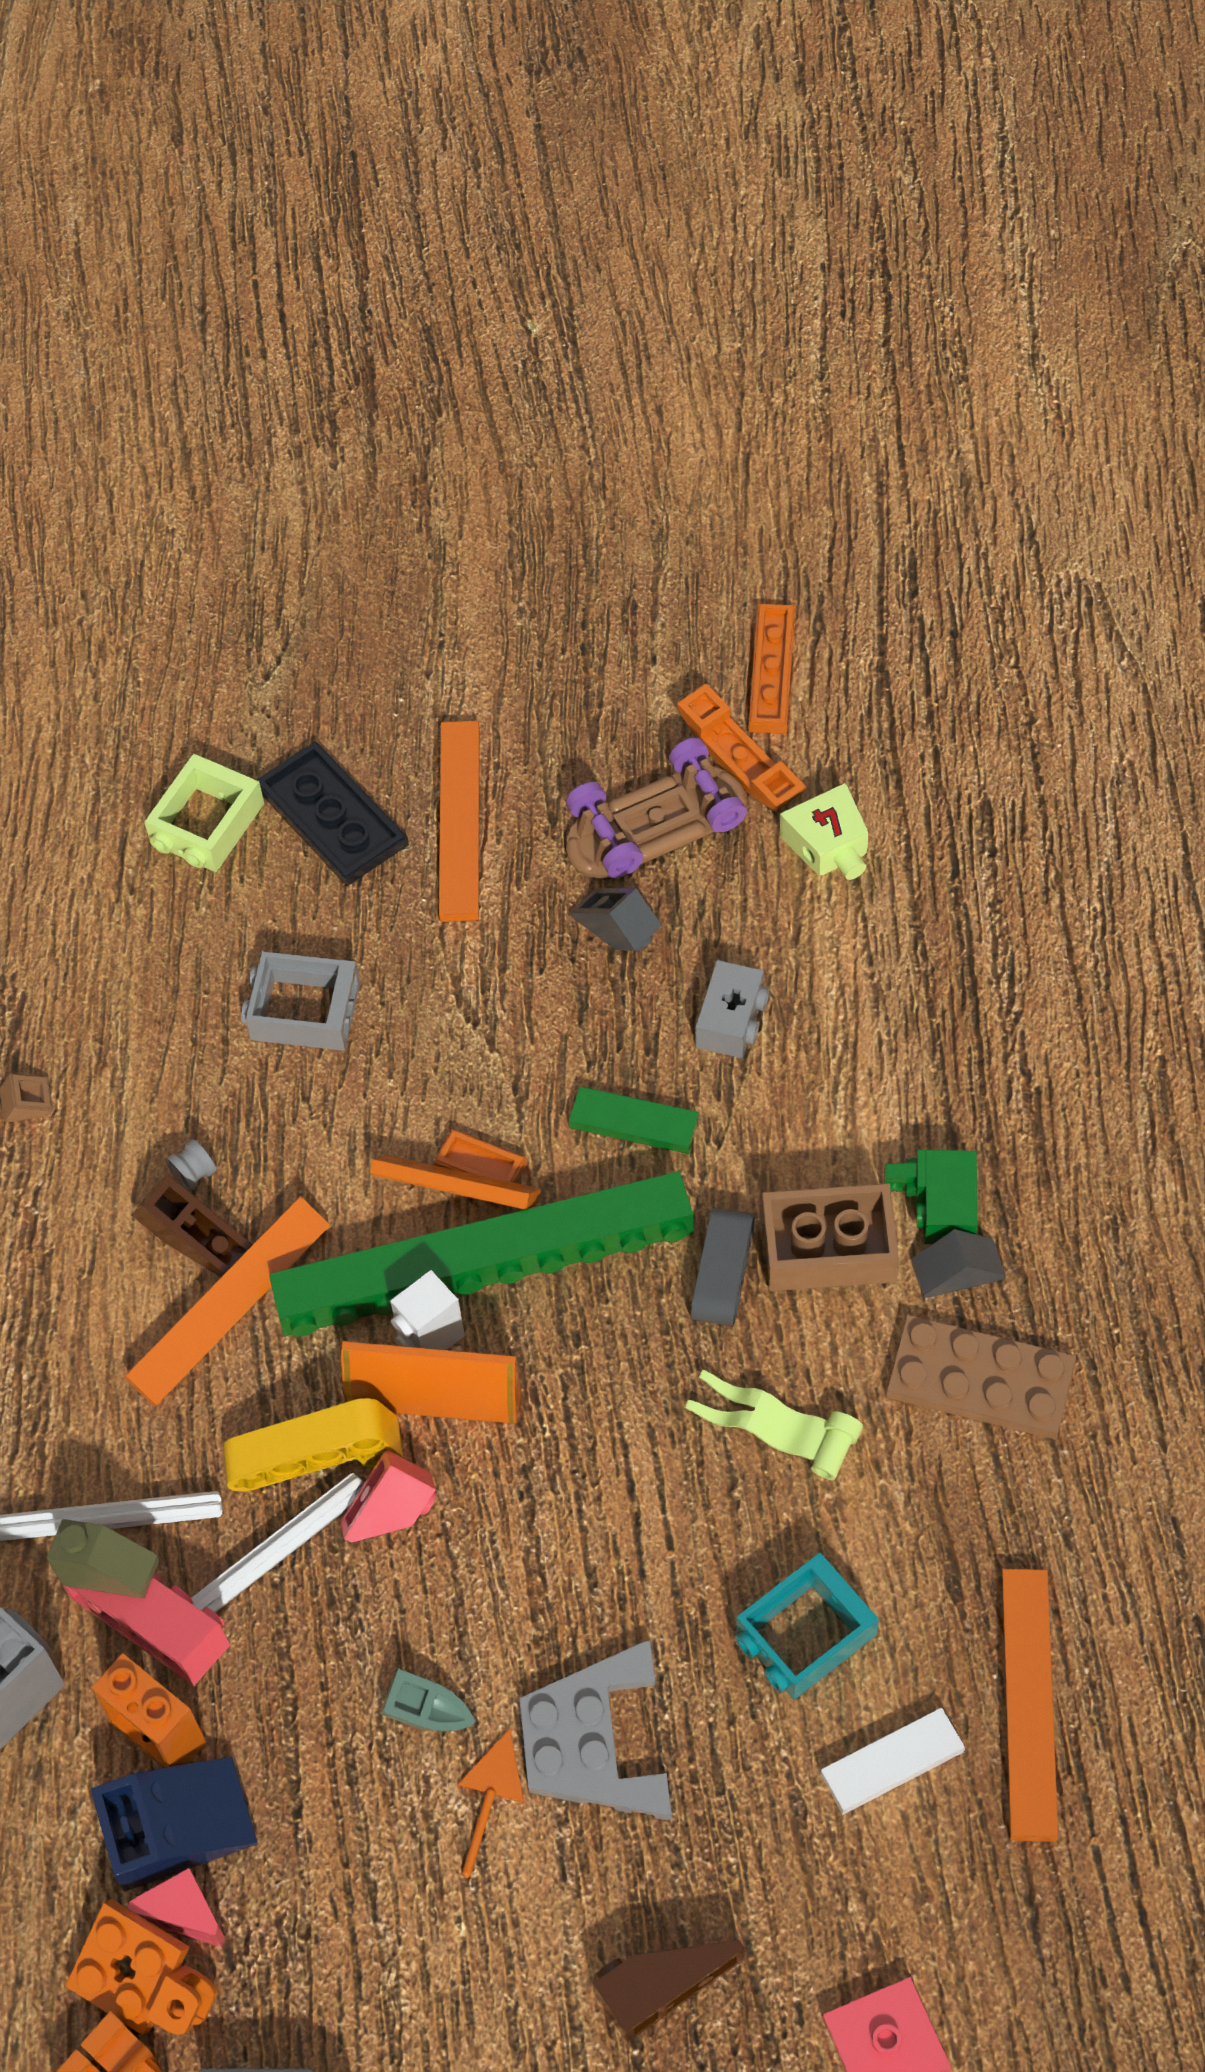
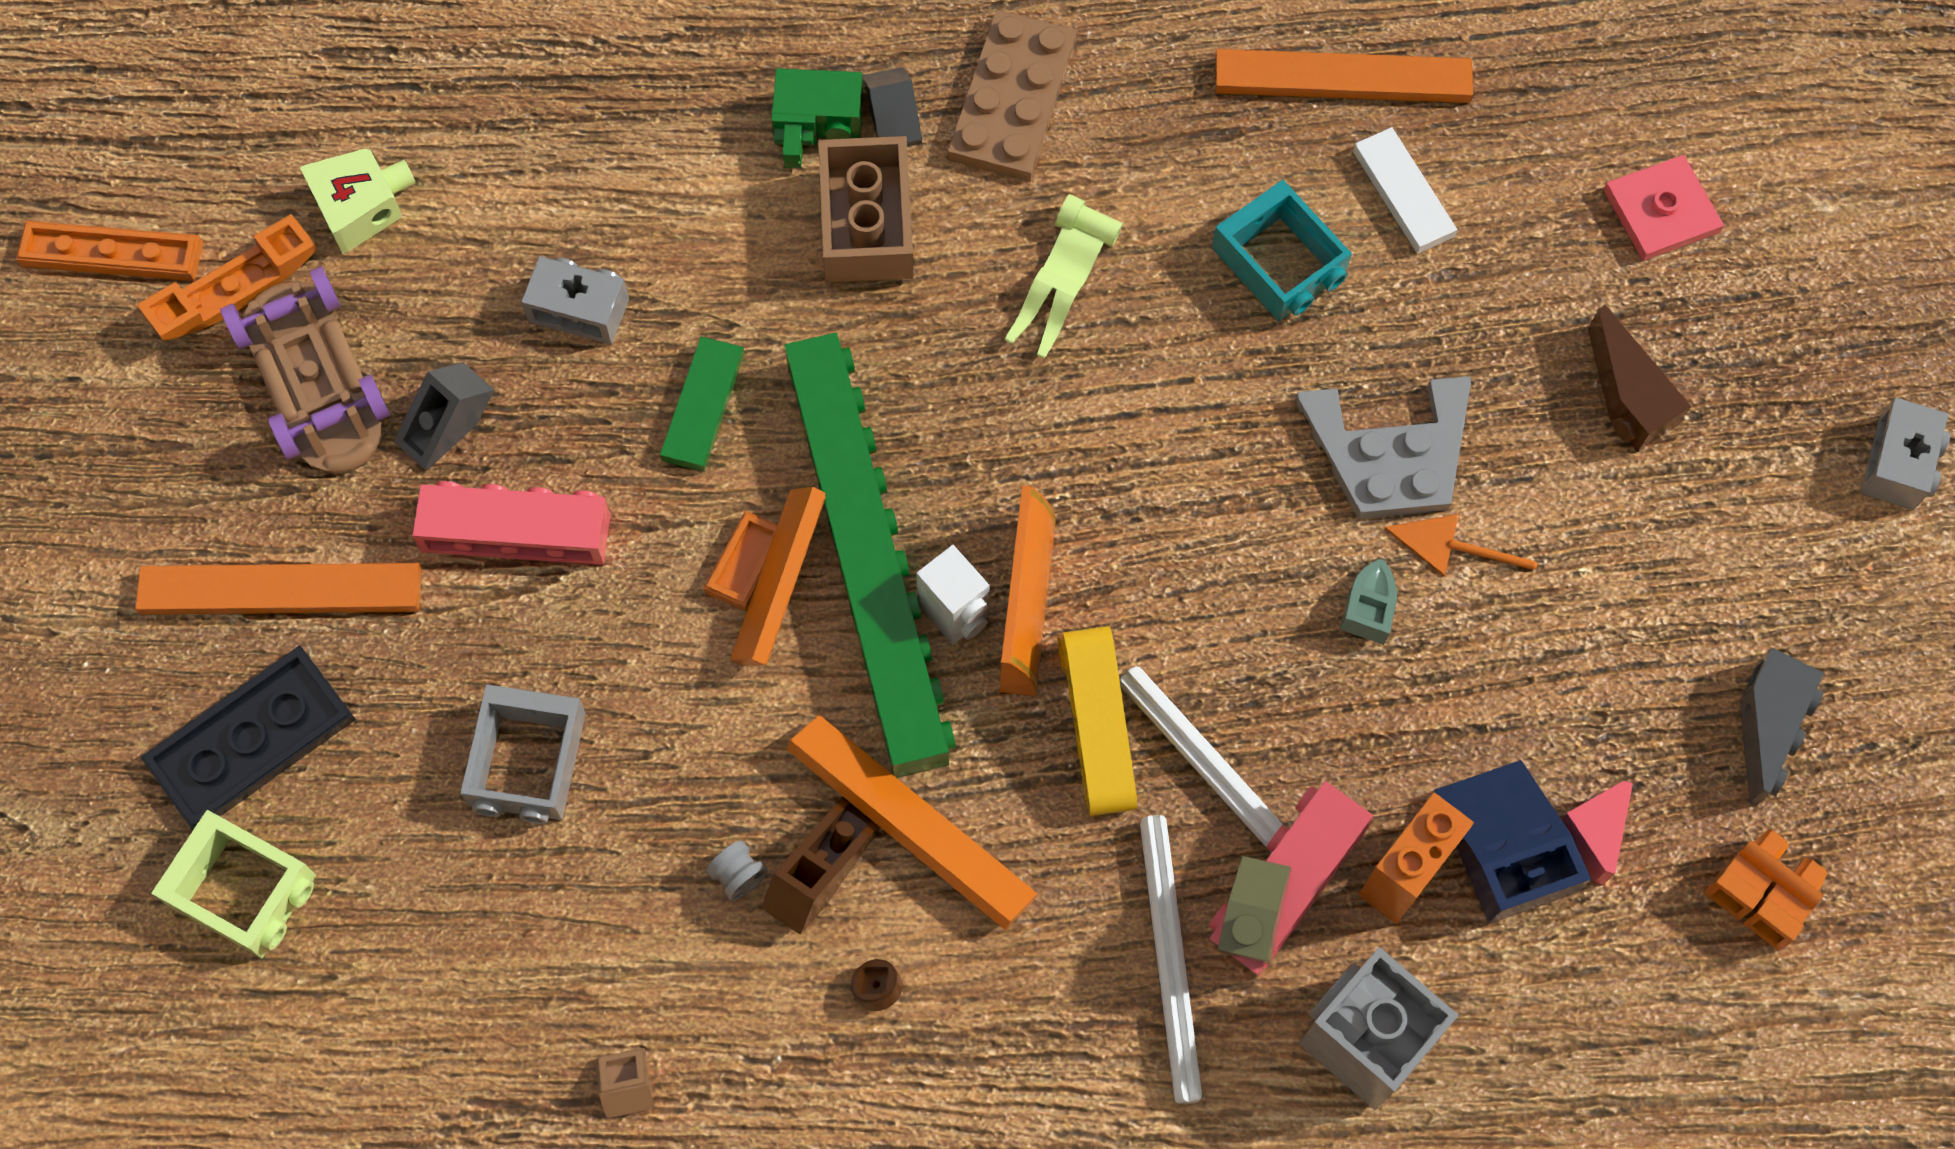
camera: 95 degrees left, 10 degrees up
(85, 1278) = (876, 985): none -> reddish brown tile
(161, 1987) = (1679, 843): orange plate -> none
(389, 1499) = (1158, 638): coral slope -> none
(511, 978) = (512, 523): none -> coral brick
(722, 1266) = (888, 316): dark grey beam -> none

